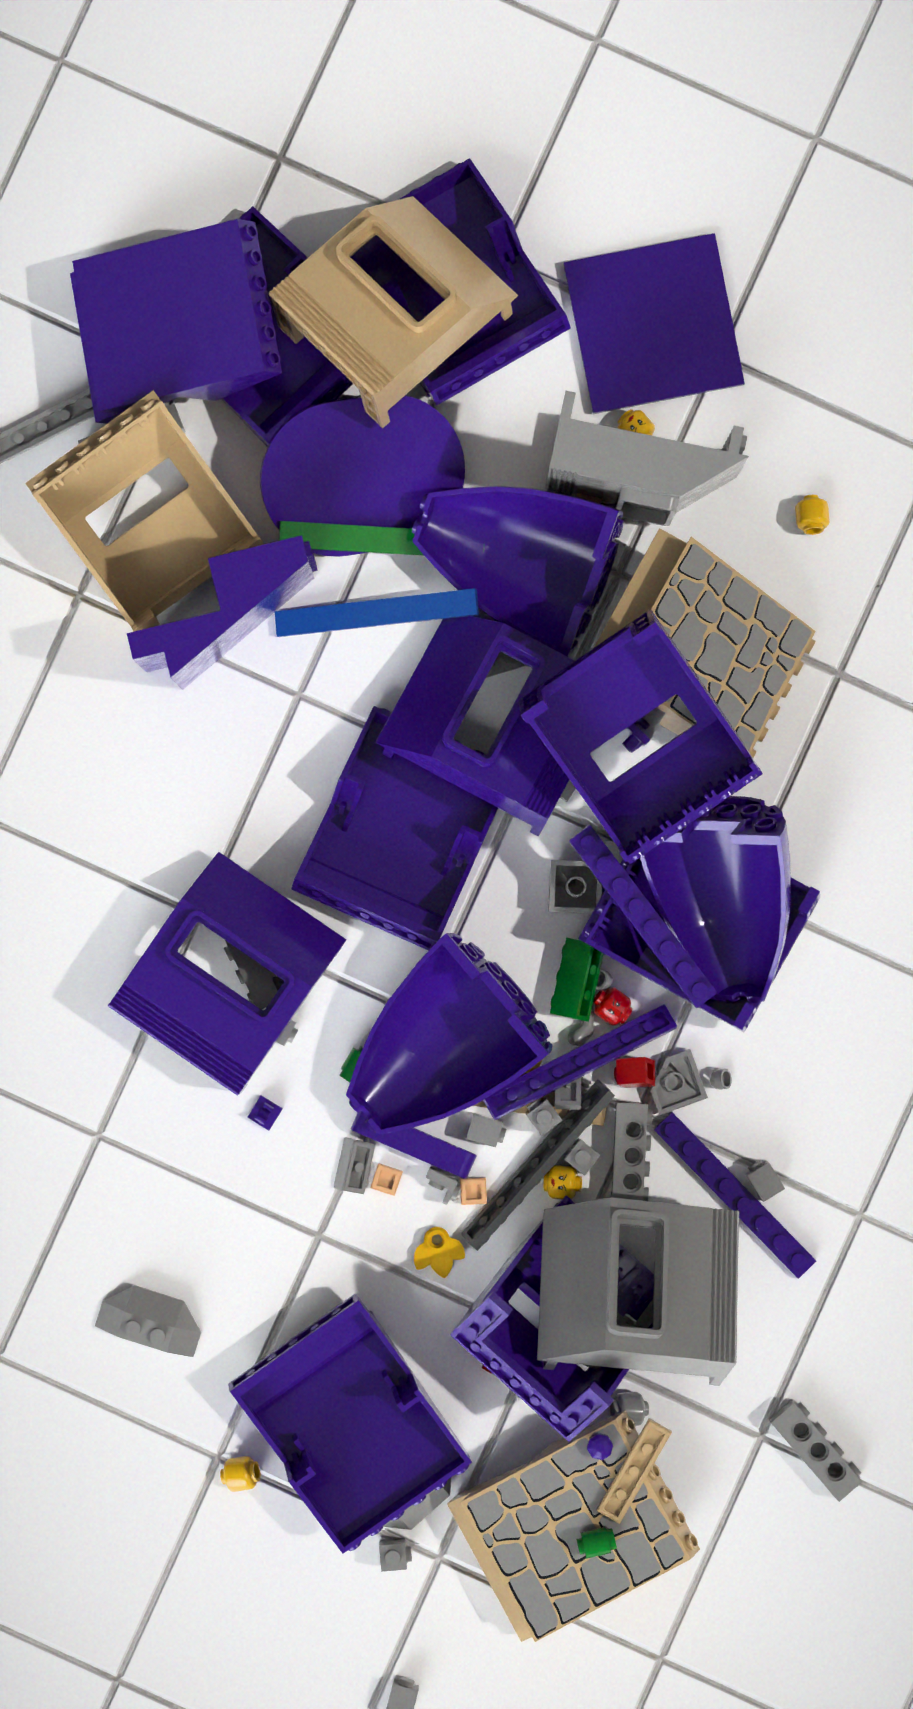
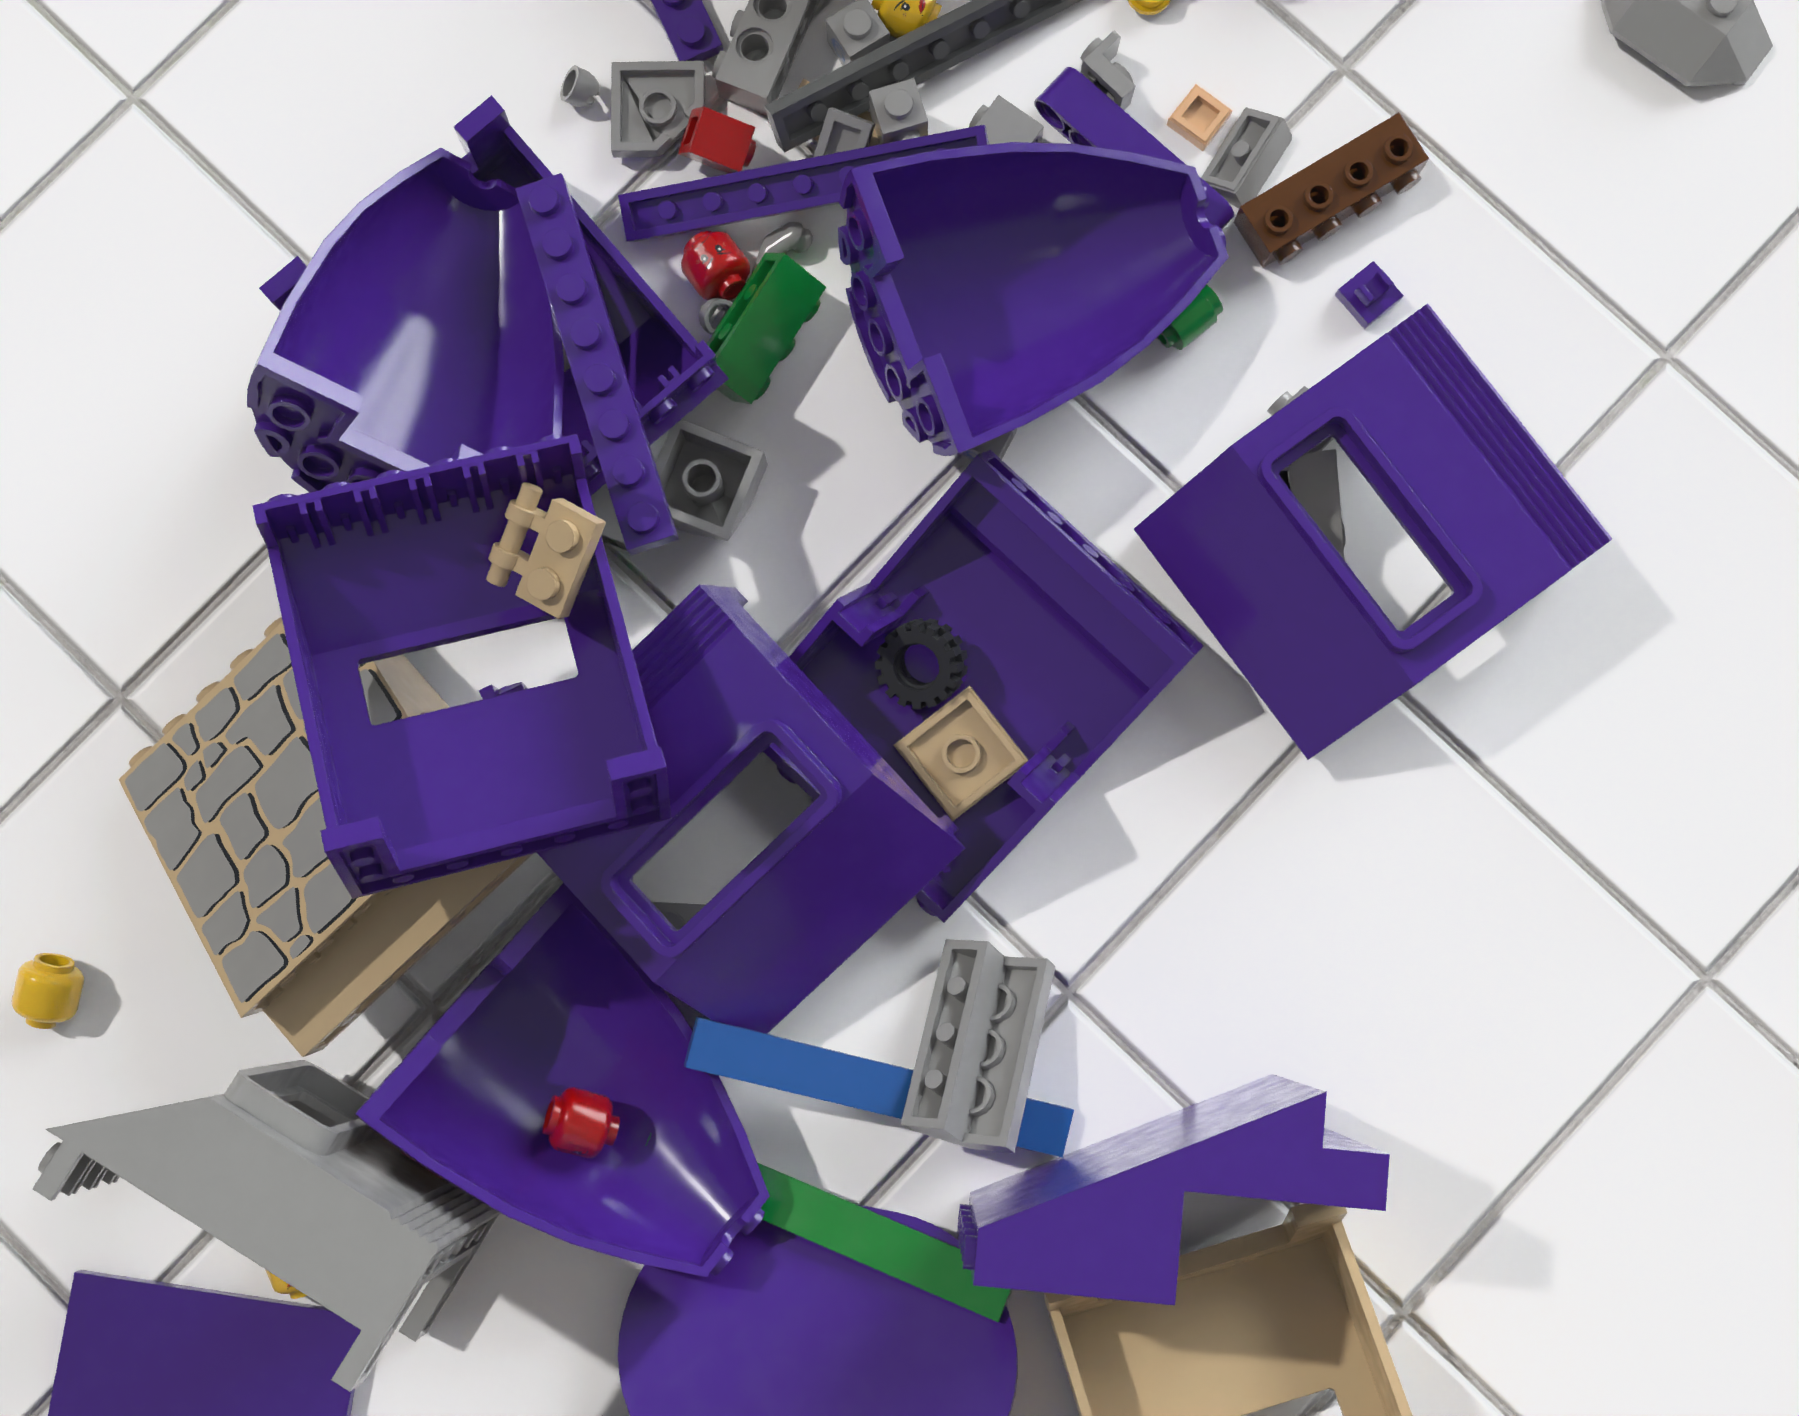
camera: 155 degrees left, 5 degrees down
(303, 1160) = (1331, 190): none -> reddish brown brick
(335, 650) = (978, 1046): none -> light grey slope
(394, 794) = (961, 753): none -> tan plate
(434, 819) = (898, 678): none -> black tyre
(473, 1191) = (1058, 48): light nougat tile -> none
(518, 544) = (580, 1122): none -> red head
(614, 803) = (559, 555): none -> tan plate

